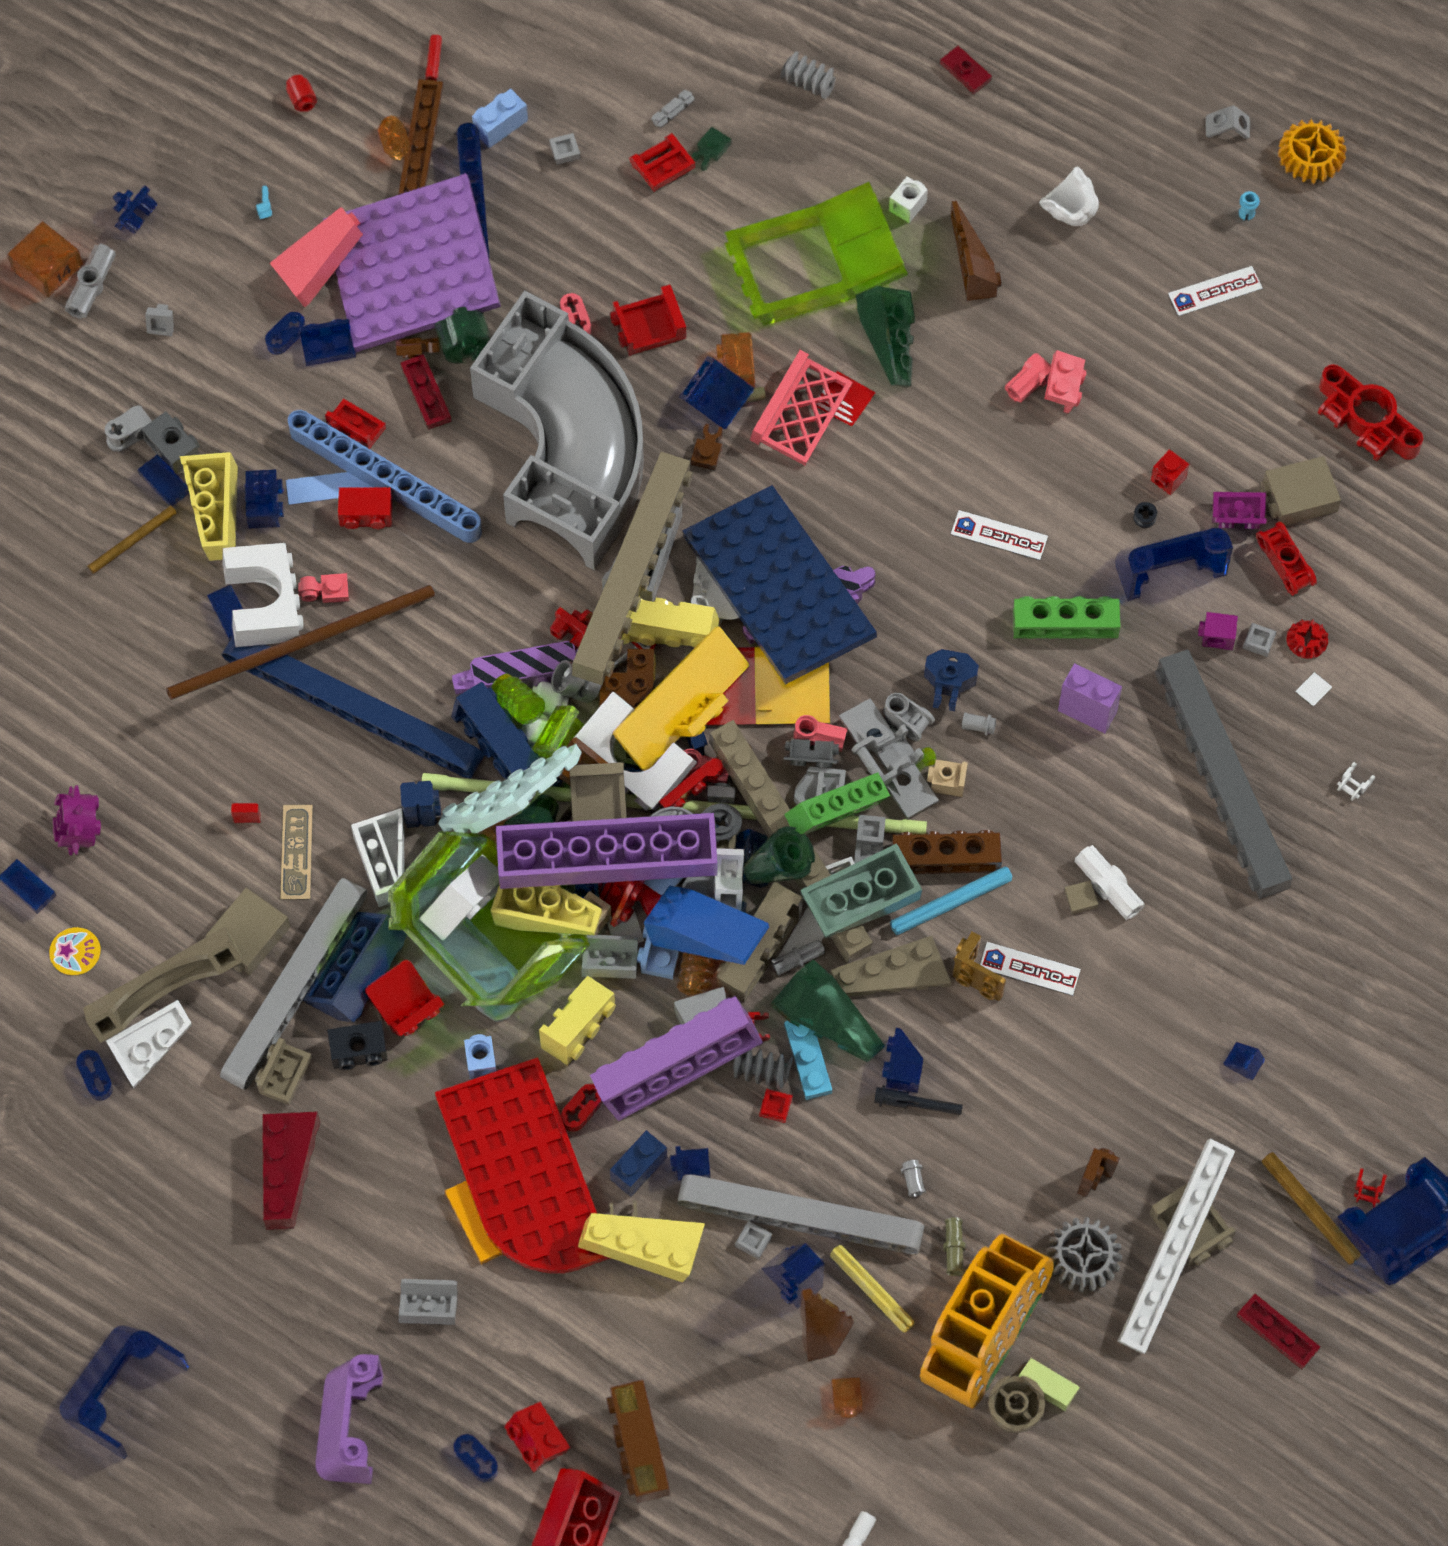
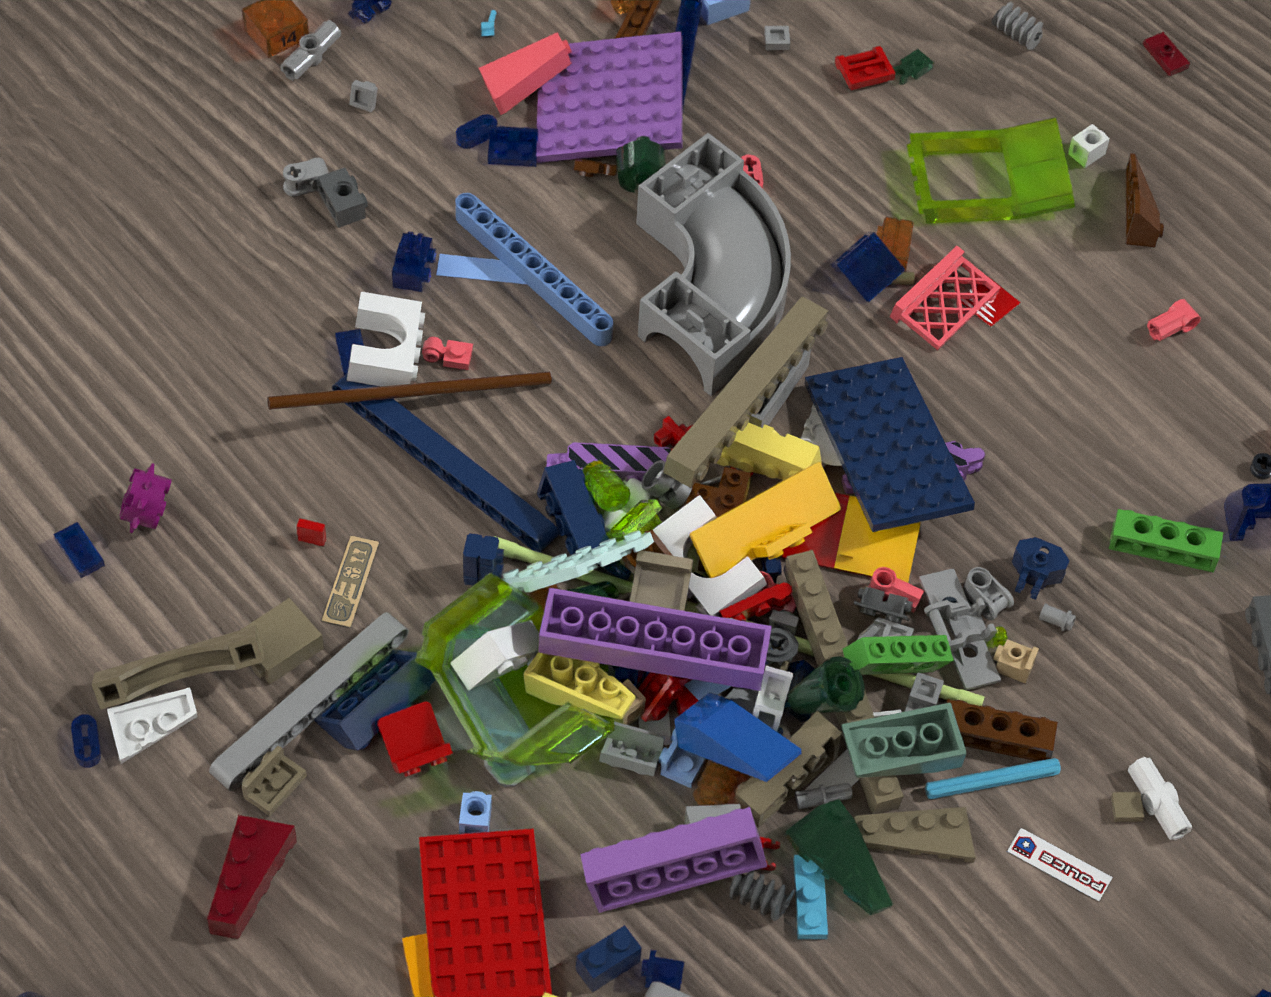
camera: 10 degrees right, 10 degrees down
(74, 951) = (106, 621): sticker -> none
(132, 539) = (279, 271): pearl gold bar -> none
(163, 480) = (325, 228): clear blue tile -> none
(214, 499) = (366, 250): light yellow wedge -> none
(343, 1039) = (345, 763): black brick -> none
(355, 423) = (519, 218): red bracket -> none
(365, 507) = (507, 290): red brick -> none
(381, 850) = (432, 589): white wedge -> none
(425, 392) = (592, 207): dark red plate -> none
(576, 1104) = (562, 885): red beam -> none
(577, 1021) = (582, 803): light yellow wedge -> none
(649, 322) = (819, 195): red panel -> none
(672, 109) = (885, 27): light grey axle -> none
(707, 451) = (847, 316): reddish brown plate -> none
(775, 1105) = (765, 936): red tile -> none
(887, 322) = (1046, 242): clear green wedge -> none
(903, 1099) = (899, 962): black pin -> none
(905, 1064) = (909, 927): clear blue slope -> none
(973, 974) = (1002, 853): pearl gold bracket -> none
(999, 534) = (1114, 452): white sticker -> none
(1065, 380) = (1208, 328): coral bracket -> none
(1072, 199) = (1247, 178): white hair -> none
(1089, 698) = (1175, 616): medium lavender brick -> none

